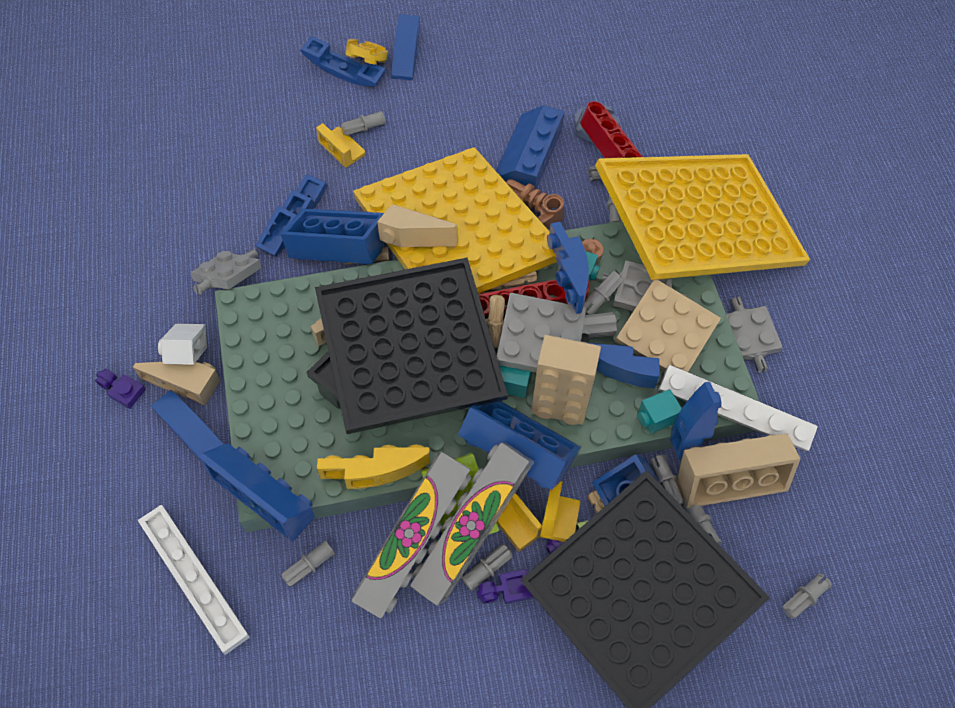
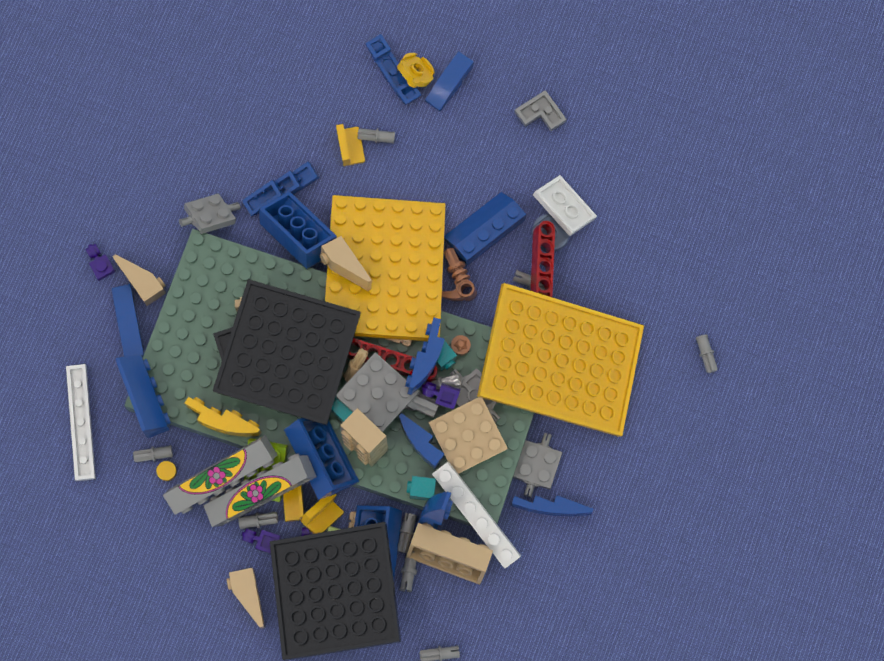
camera: 30 degrees right, 15 degrees up
(183, 344) = (152, 257): white brick -> none
(336, 575) = (166, 471): none -> yellow tile
(511, 29) = (543, 107): none -> light grey plate
(530, 664) = (245, 589): none -> tan slope
(586, 90) = (564, 205): none -> white tile
(616, 298) = (446, 396): none -> dark purple plate
(802, 362) = (560, 506): none -> blue slope
(823, 150) = (706, 353): none -> light grey axle

